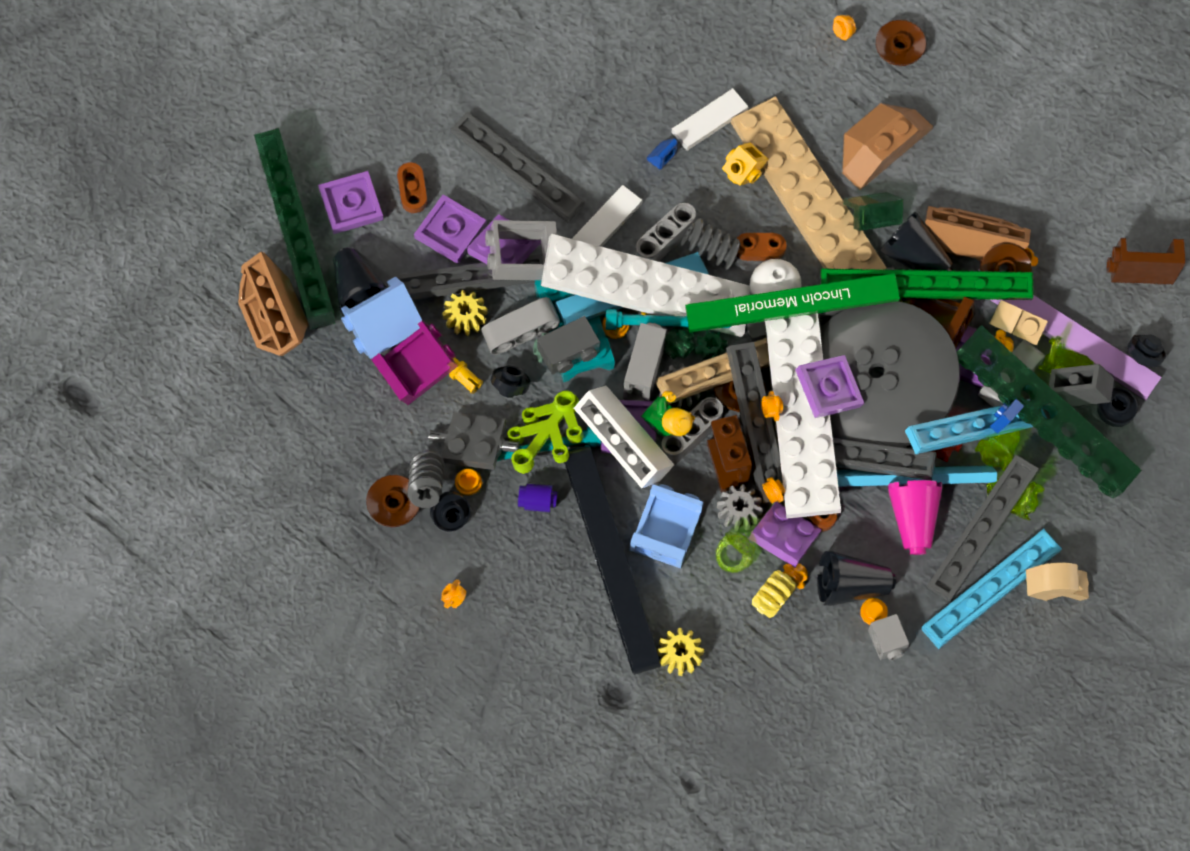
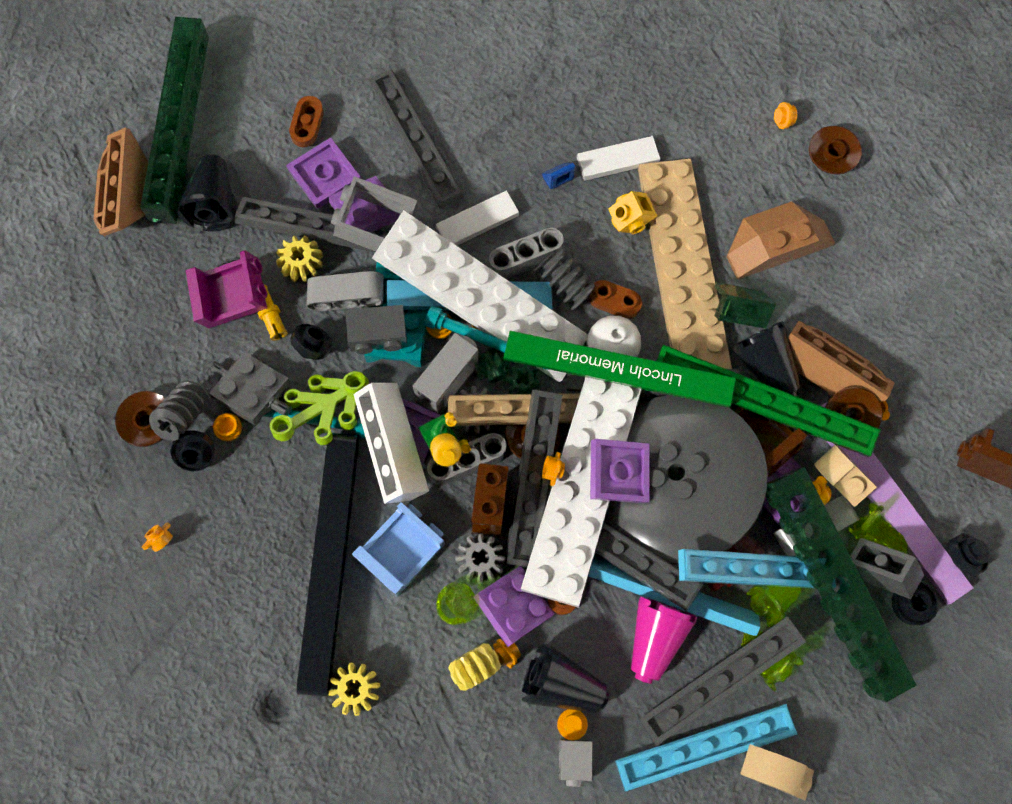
camera: 20 degrees right, 5 degrees up
(350, 202) = (243, 114): medium lavender plate -> none
(382, 319) = (213, 235): light blue panel -> none
(537, 497) = (284, 469): dark purple brick -> none
(774, 490) = (519, 556): light orange plate -> none
(1005, 415) = (793, 572): blue plate -> none

